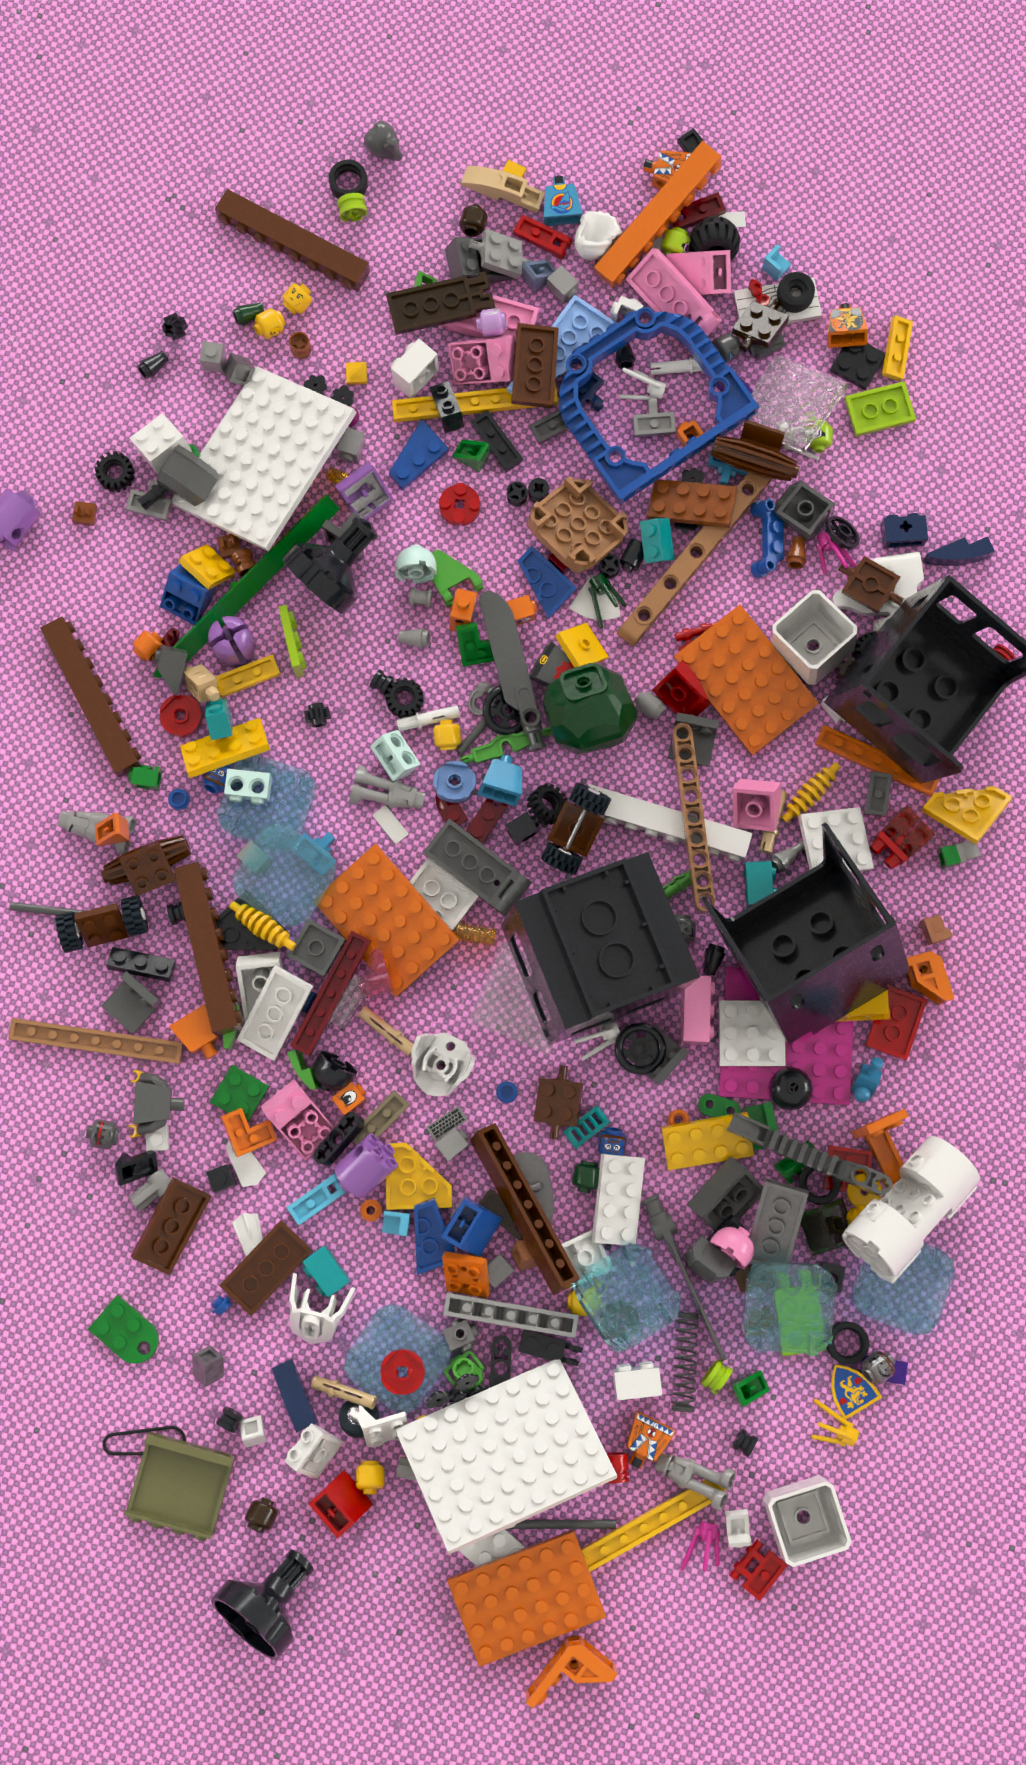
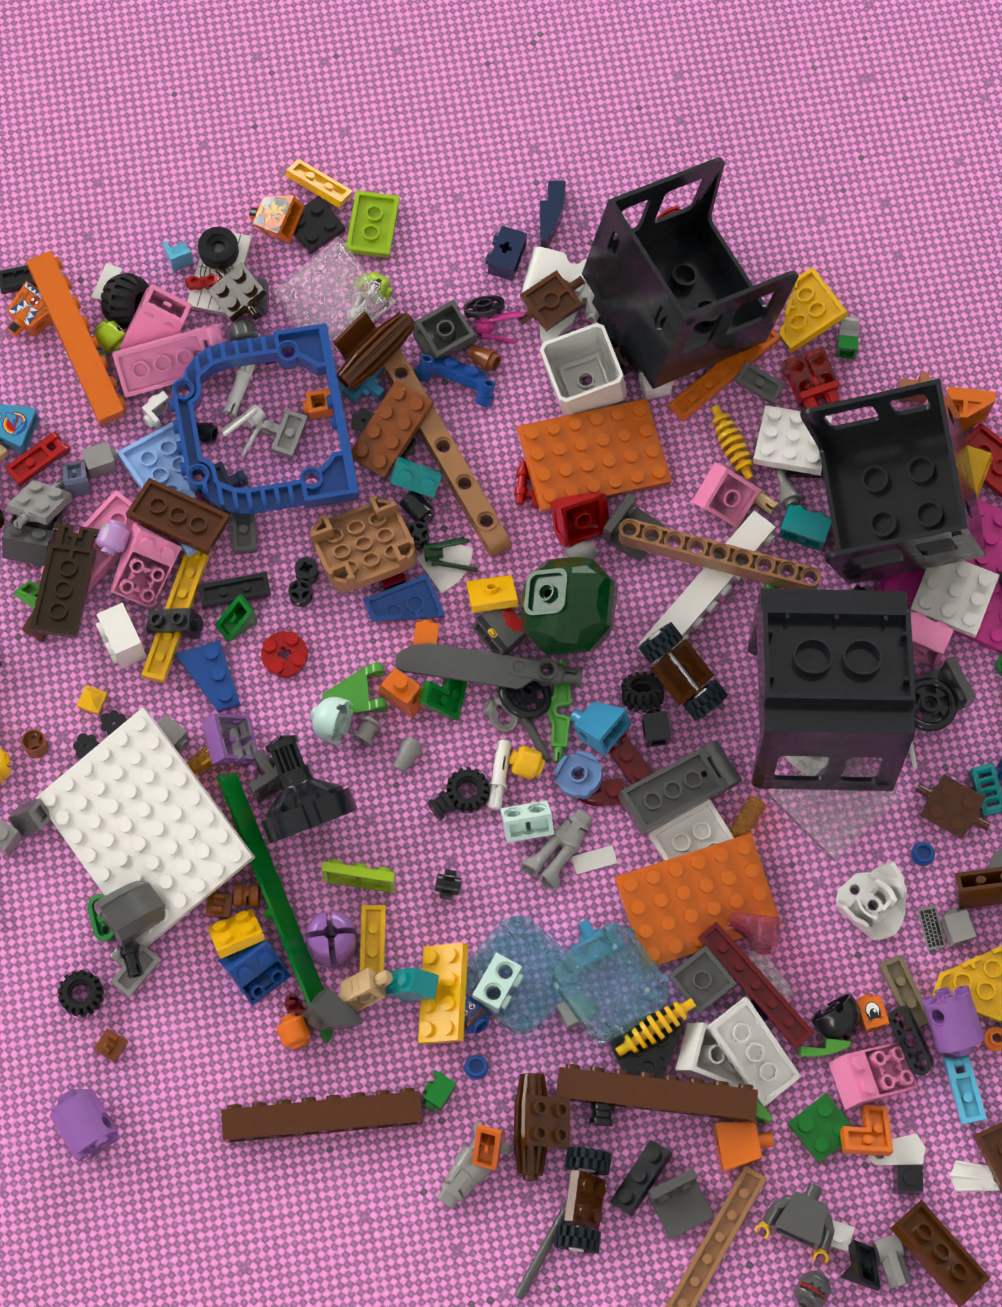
camera: 70 degrees left, 10 degrees down
(157, 442) = (76, 929): white brick -> none
(180, 727) = (391, 1016): red plate -> none
(367, 1015) = (838, 934): tan pin -> none
(596, 234) = (64, 405): white piece -> none
(699, 210) = (88, 295): dark red plate -> none

